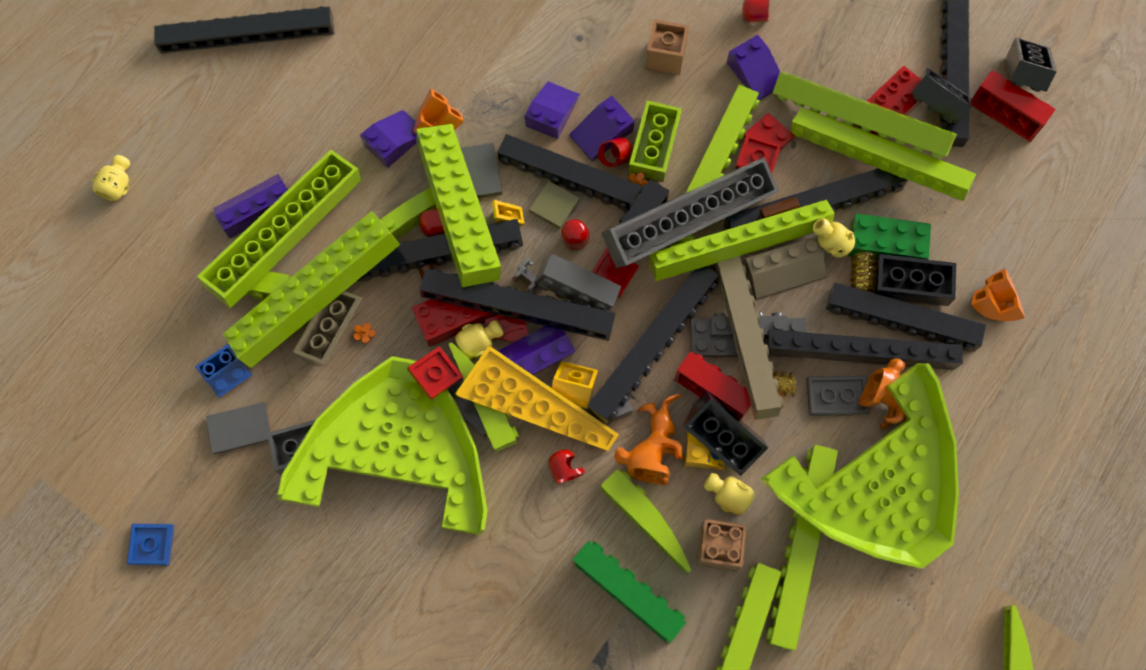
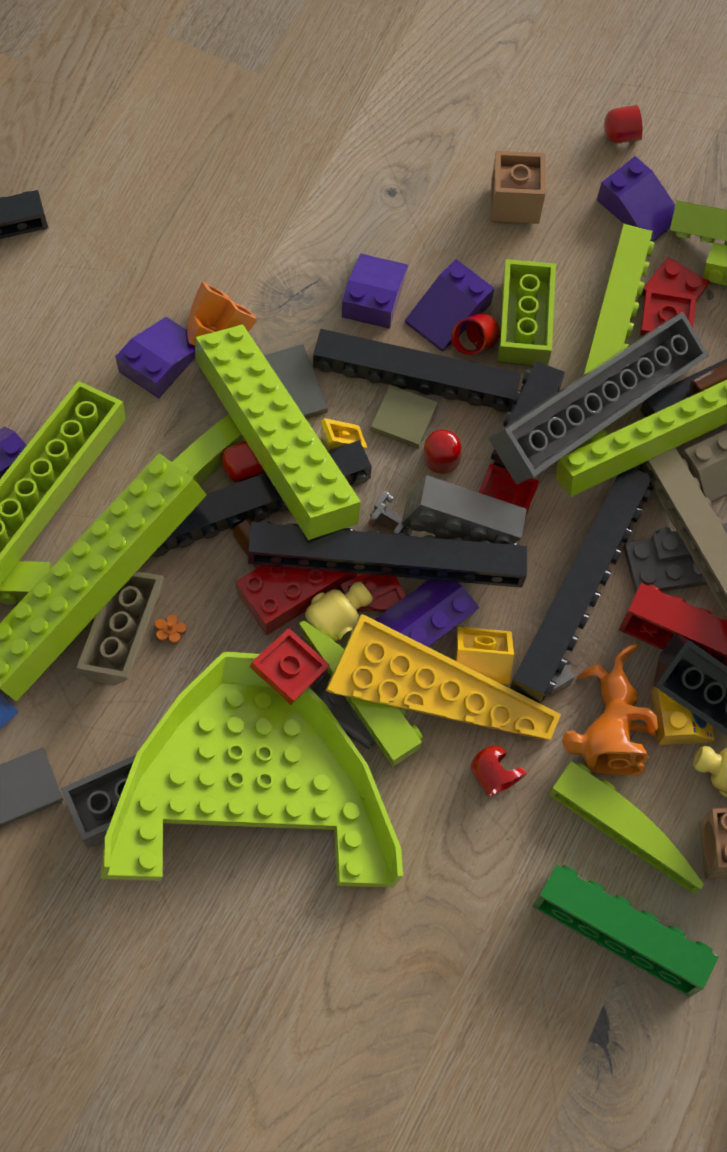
camera: 15 degrees left, 5 degrees down
(638, 179) = (514, 365): orange plant -> none

